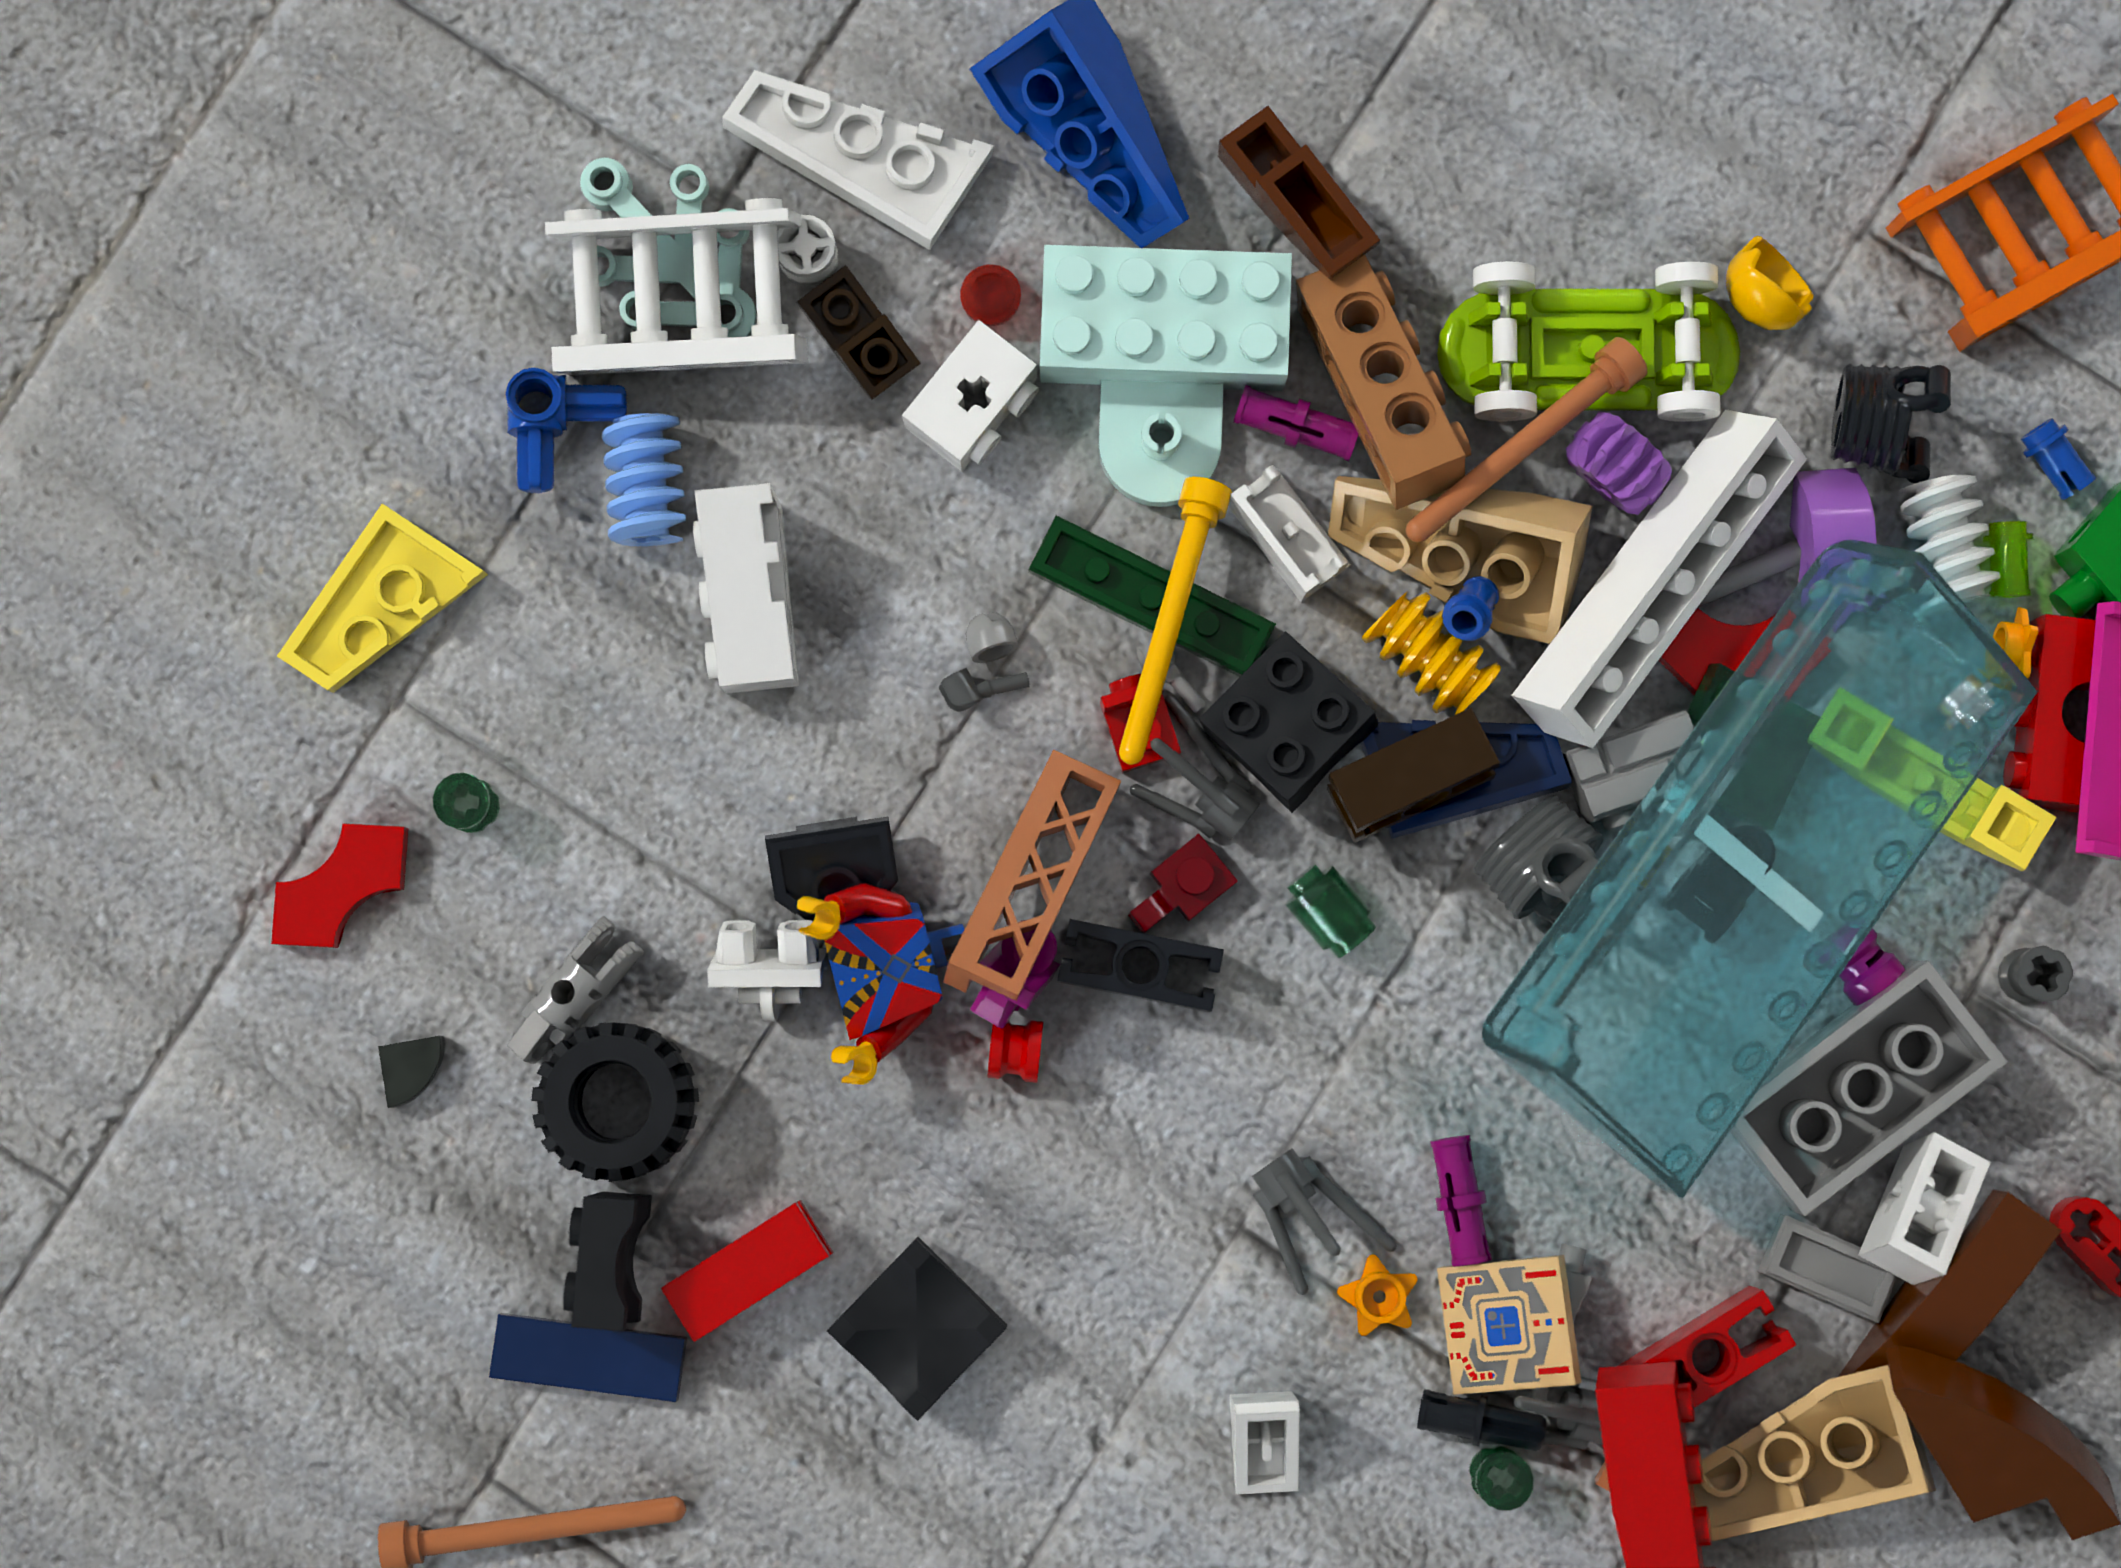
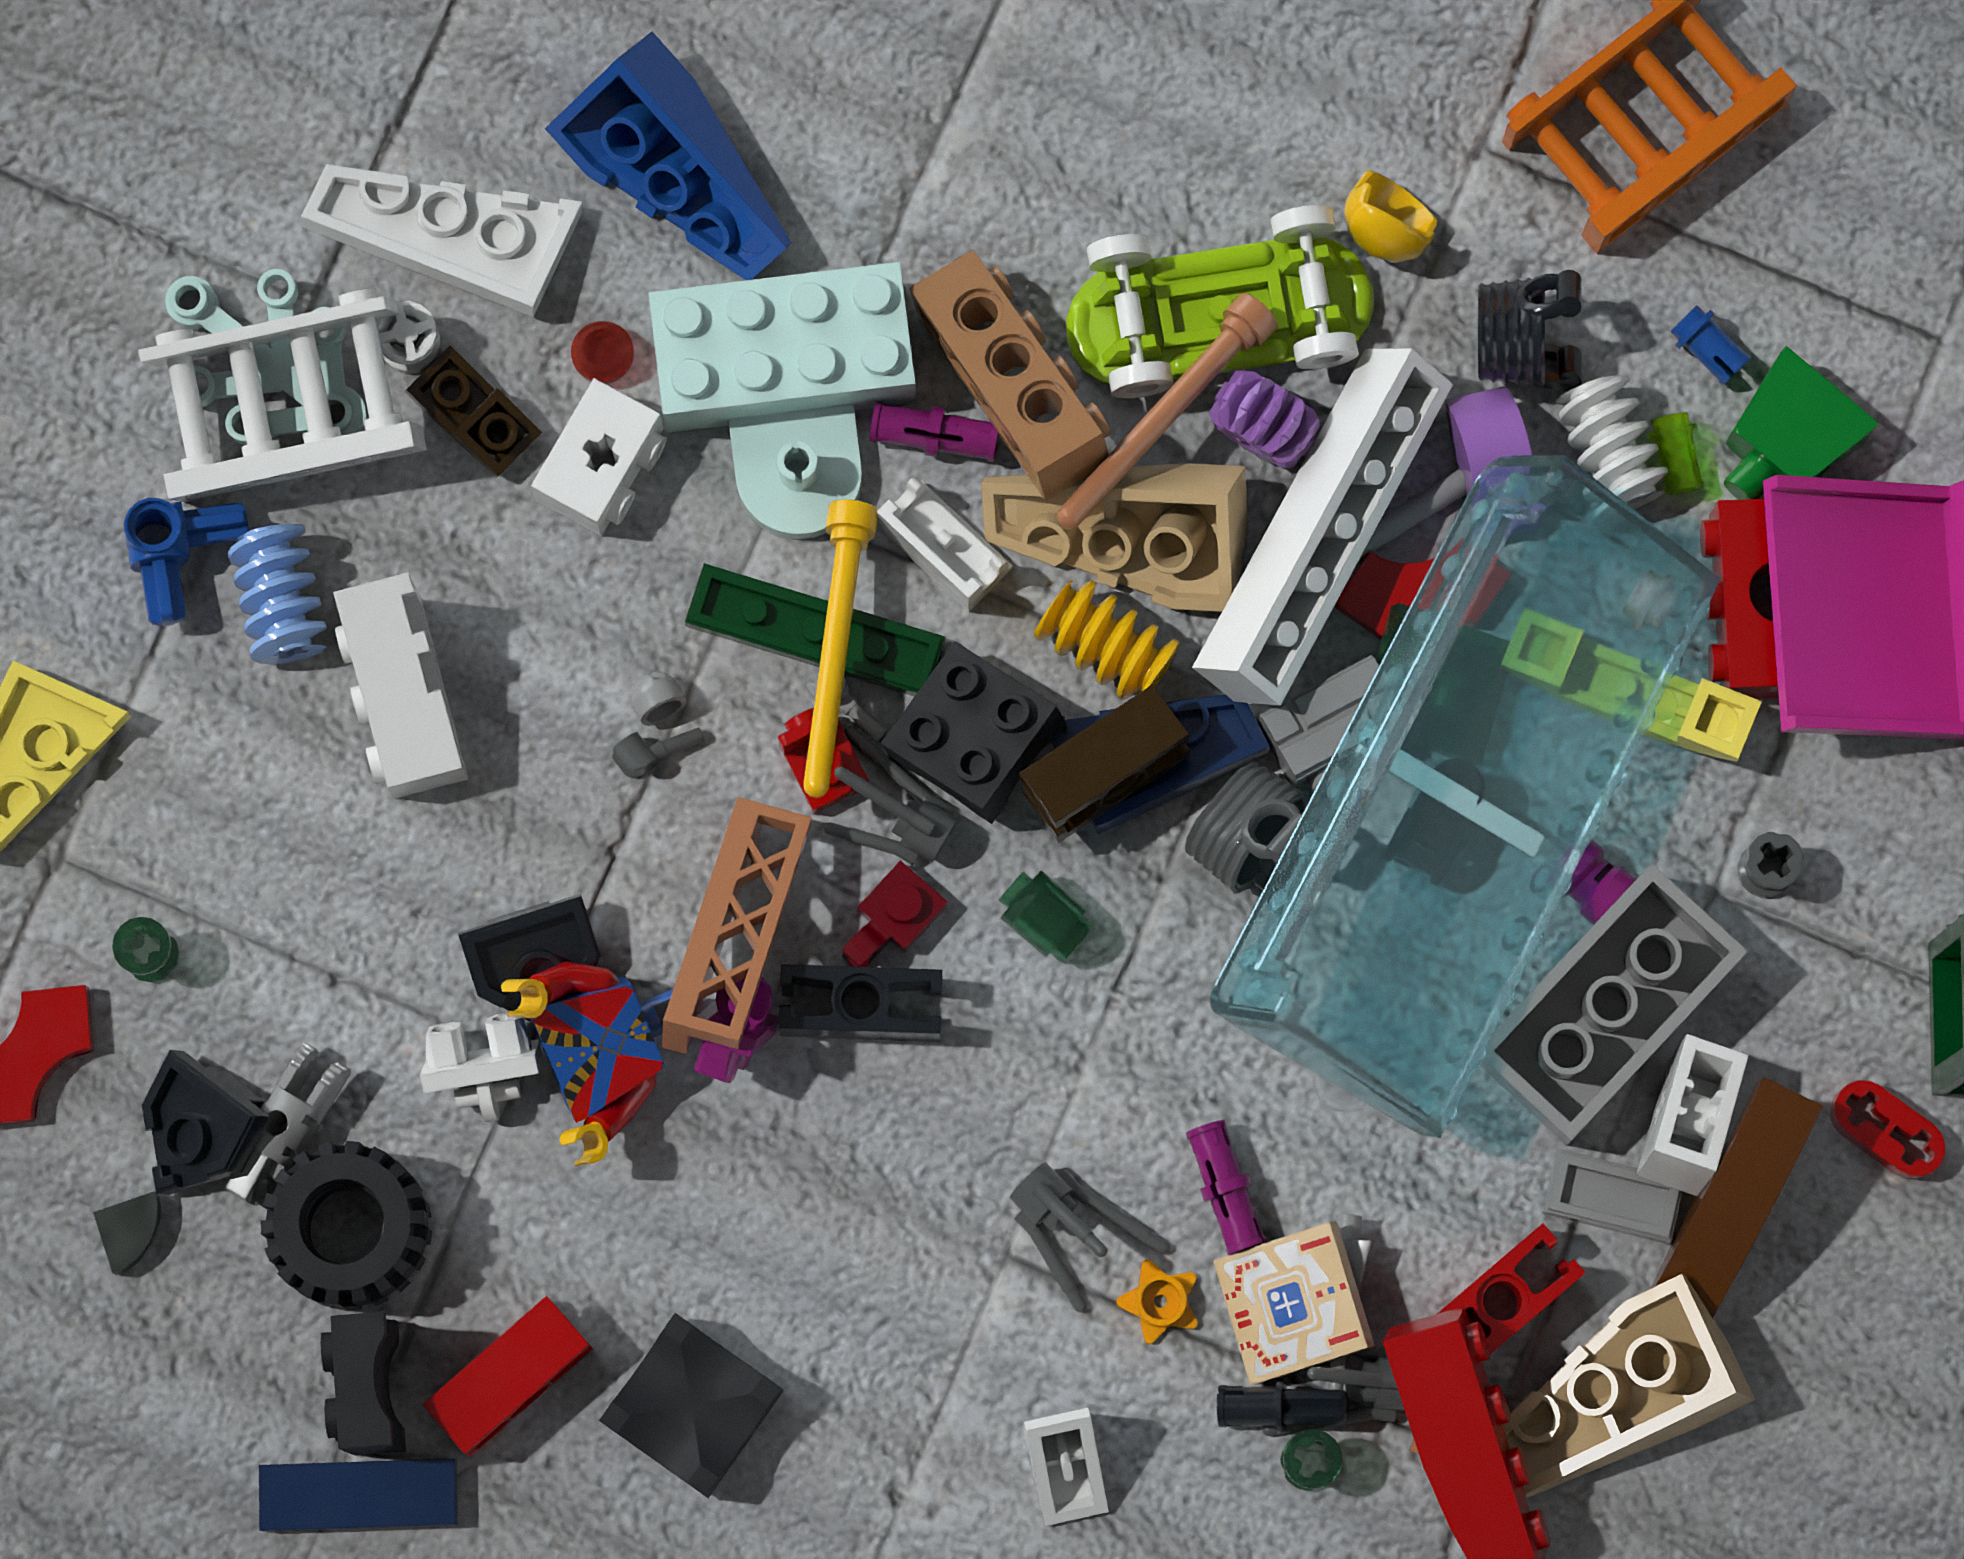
camera: 10 degrees left, 5 degrees down
(492, 978) = (199, 1123): none -> black plate
(1016, 1050) = (747, 1109): red wheel -> none
(1296, 193) = (896, 201): reddish brown slope -> none
(1470, 612) = (1136, 590): blue pin -> none
(1999, 1443) = (1804, 1336): reddish brown slope -> none
(2017, 640) = (1692, 533): light orange plate -> none

